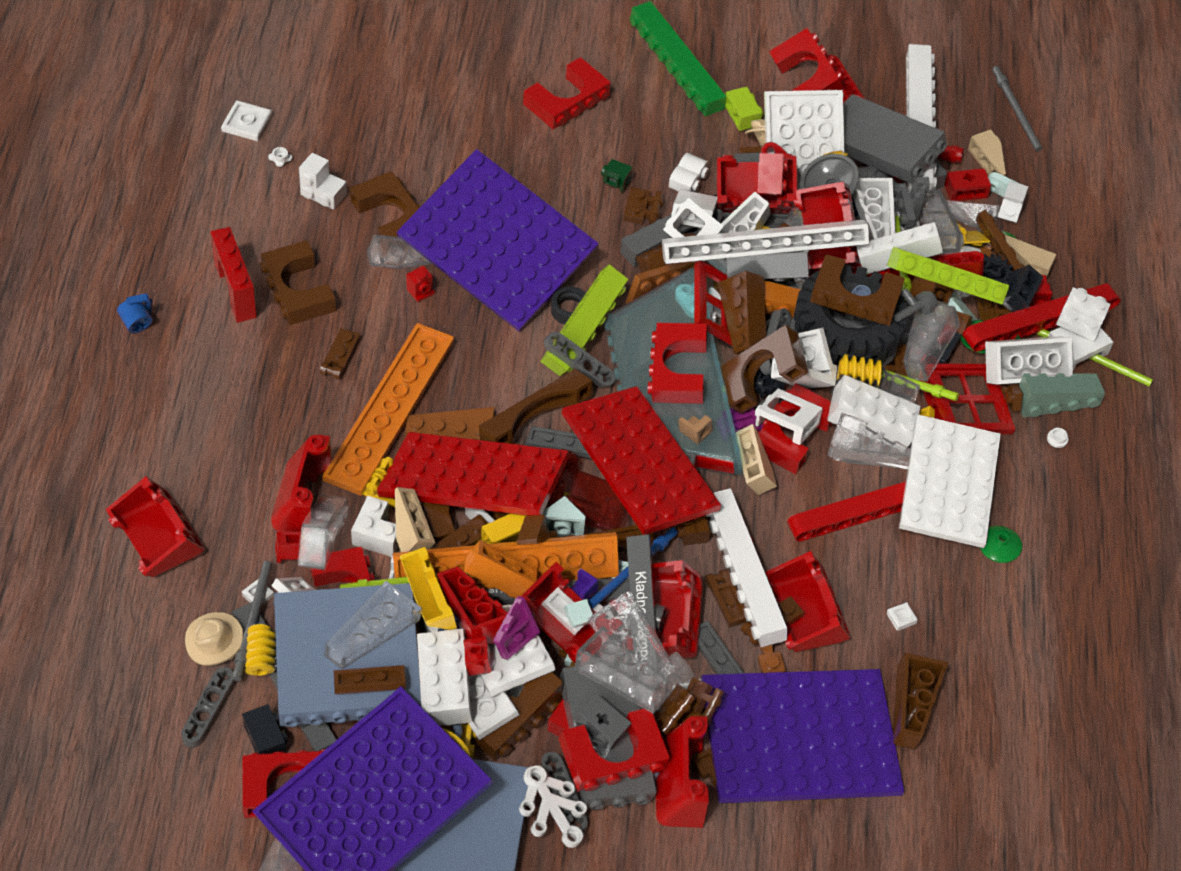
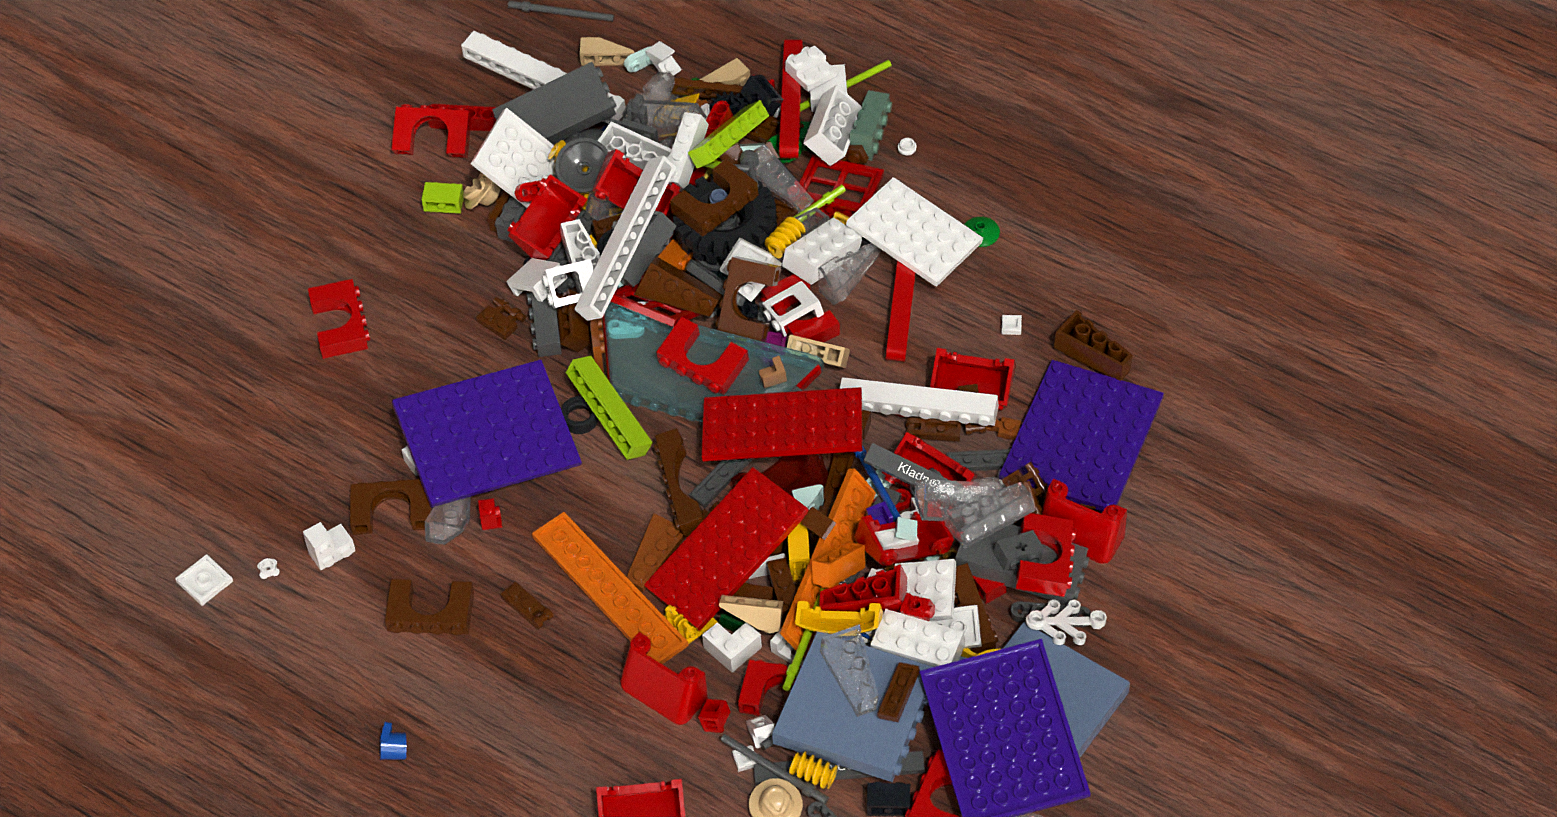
camera: 55 degrees left, 0 degrees up
(231, 265) = (422, 643): red arch -> none
(321, 531) = (727, 678): clear wedge -> none
(516, 629) = (912, 569): magenta wing -> none
(578, 362) = (647, 425): dark grey beam -> none
(616, 174) = (457, 320): dark green window -> none
(678, 59) = (350, 219): green brick -> none
(688, 173) = (489, 269): white brick -> none
(771, 175) = (555, 203): brick -> none
(967, 185) = (625, 80): red brick -> none

